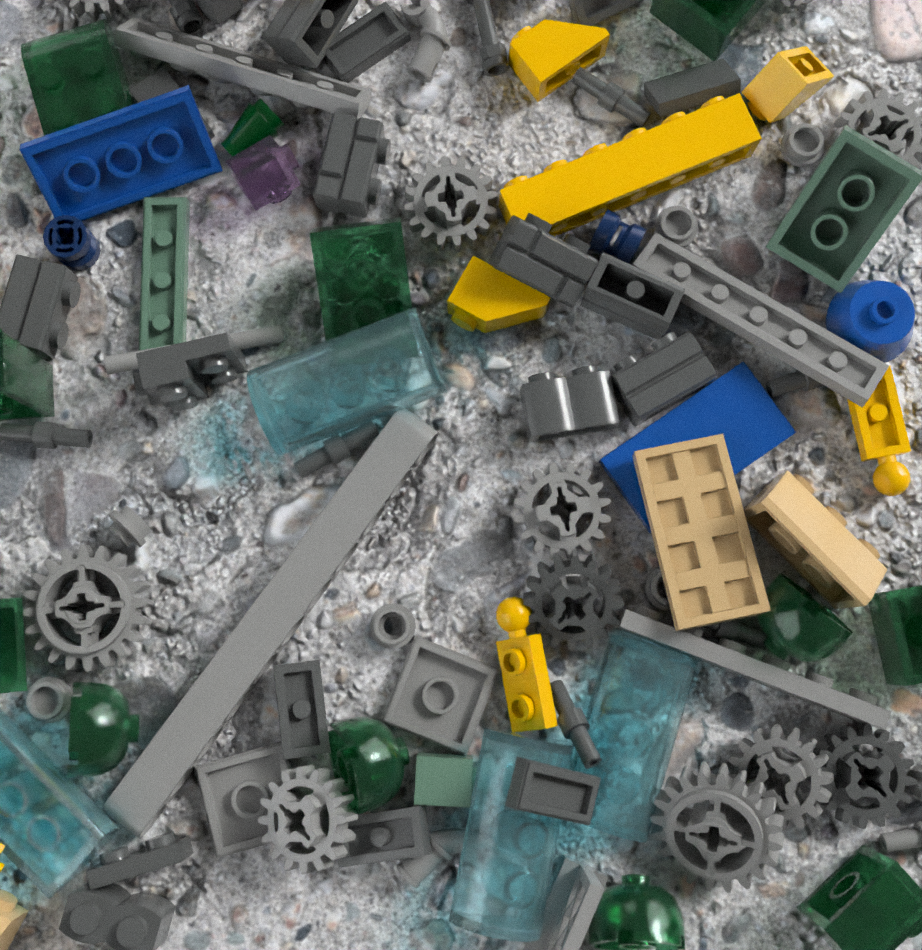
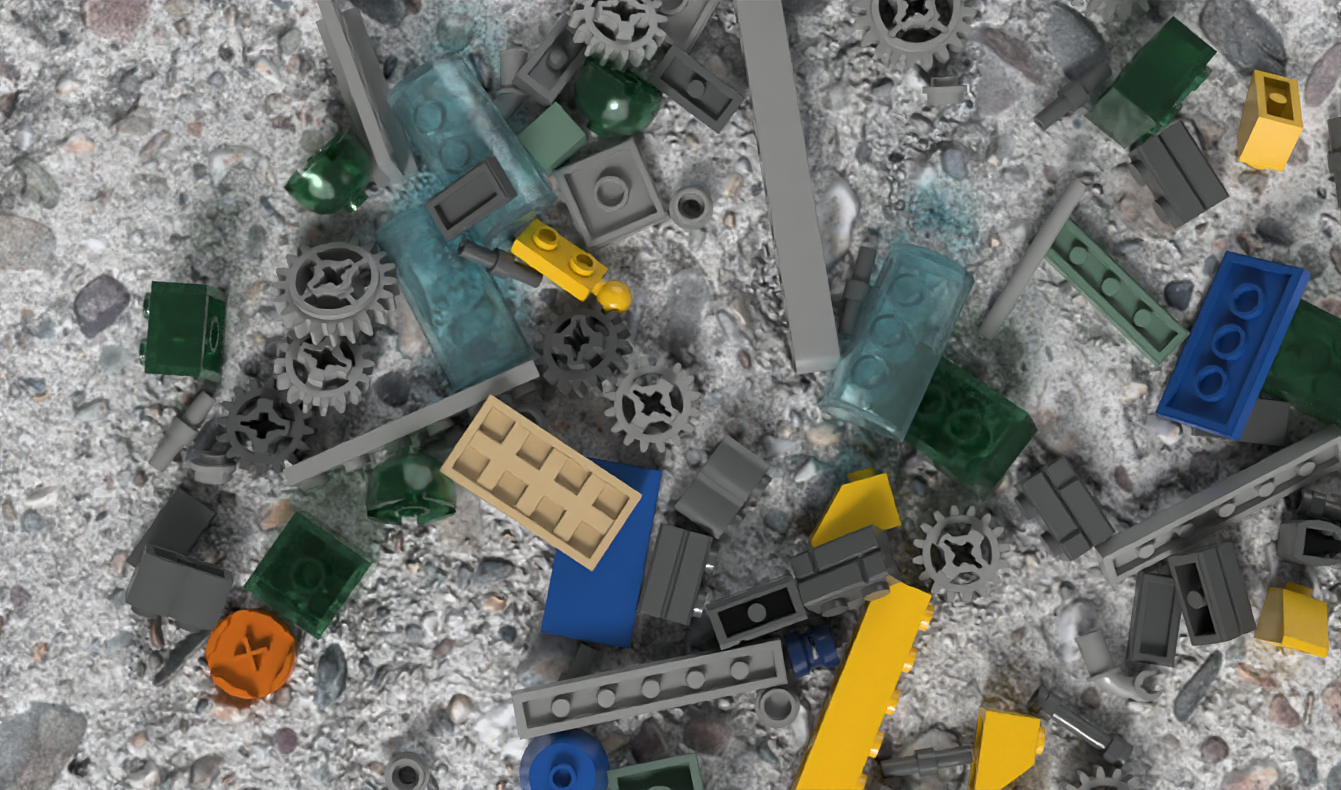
camera: 135 degrees right, 5 degrees up
(79, 251) = (1194, 250): dark blue wheel -> none
(179, 372) = (1017, 229): dark grey plate -> none
(251, 127) = (1164, 464): dark green cone -> none
(265, 172) = (1119, 438): clear purple brick -> none
(816, 542) = (452, 562): tan slope -> none
(883, 436) = (475, 692): yellow plate -> none

